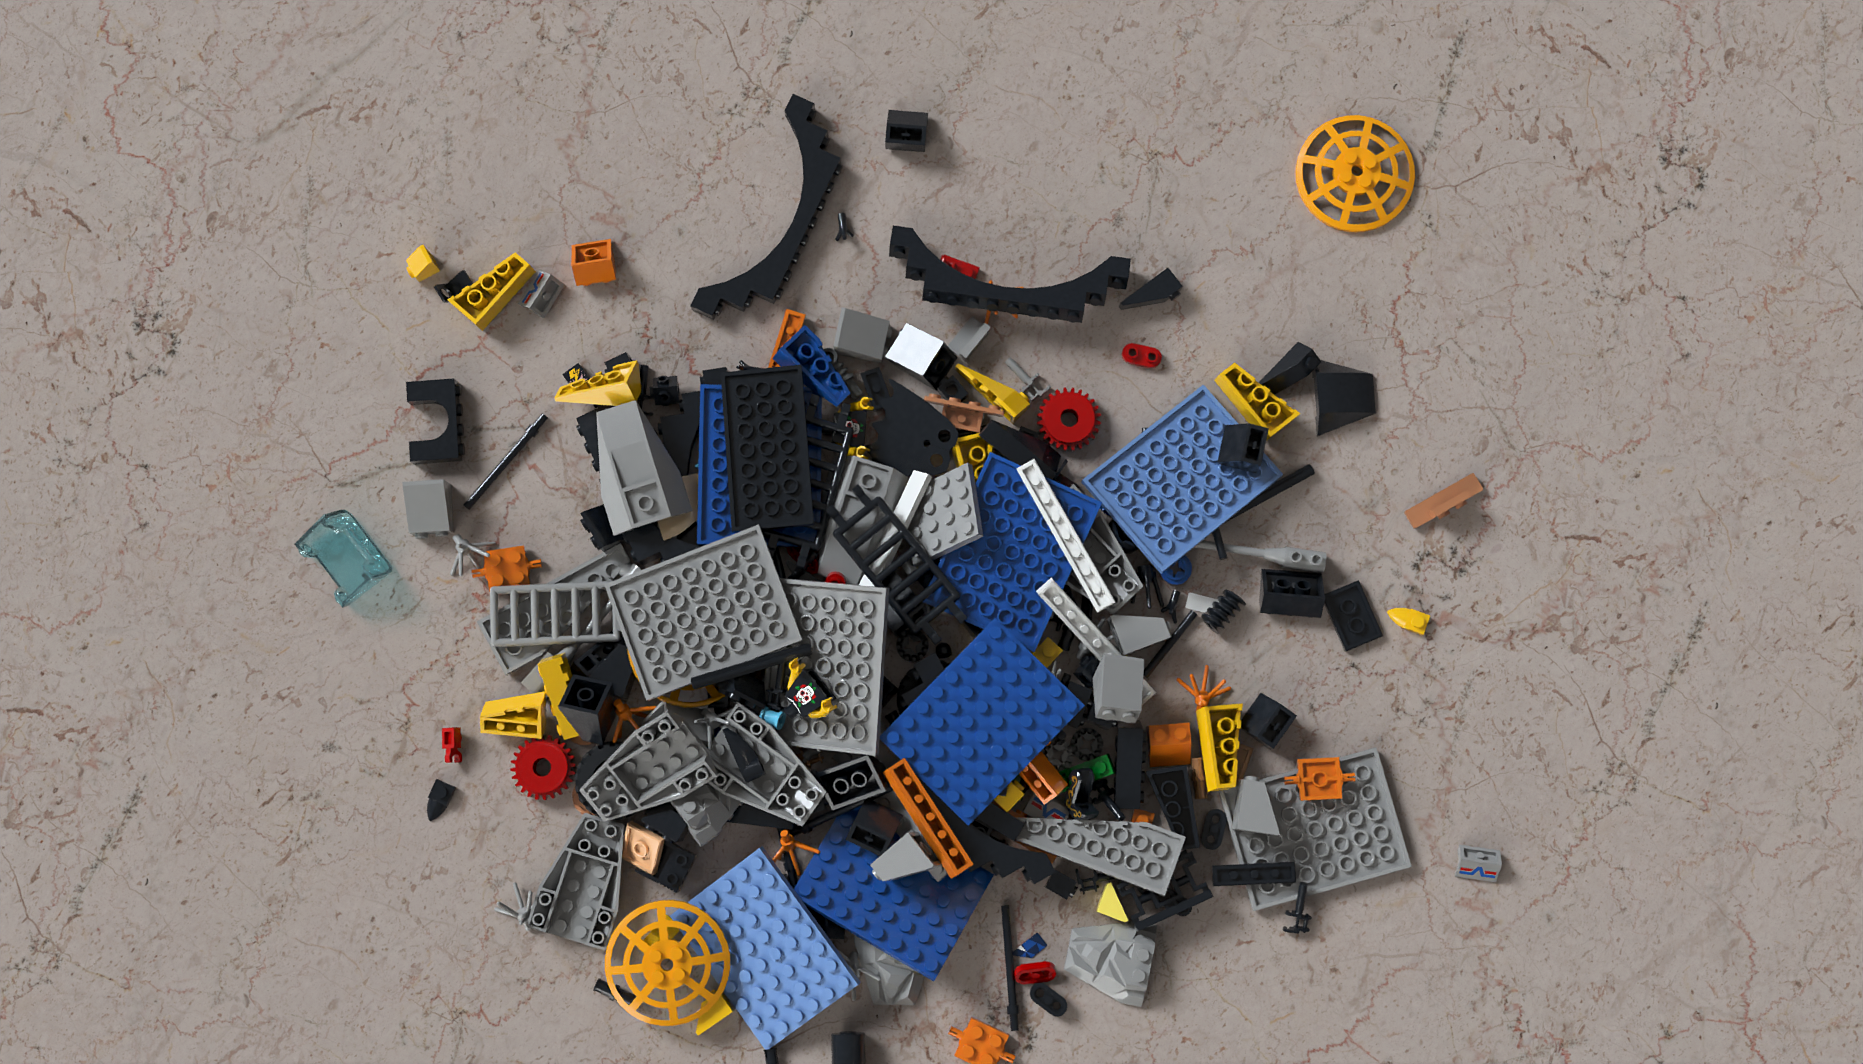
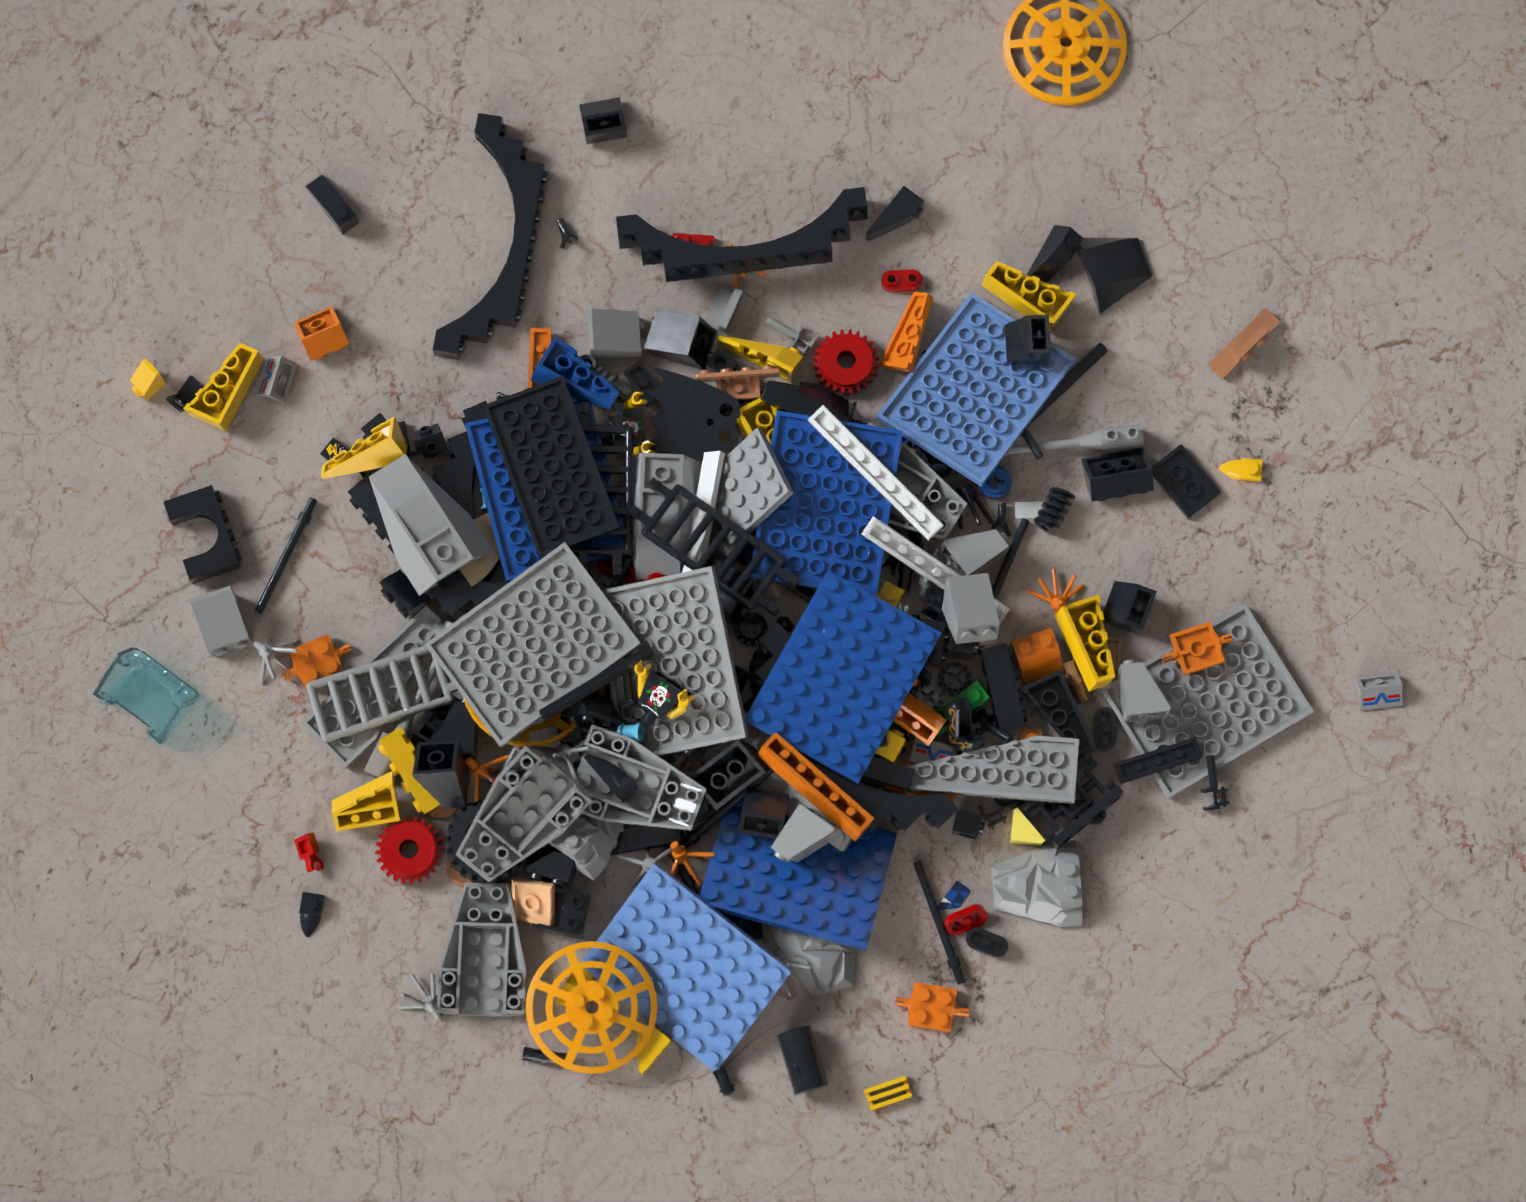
camera: 15 degrees left, 5 degrees down
(636, 143) = (333, 204): none -> black slope
(756, 842) = (647, 863): none -> light grey plant
(1129, 414) = (907, 337): none -> orange wing

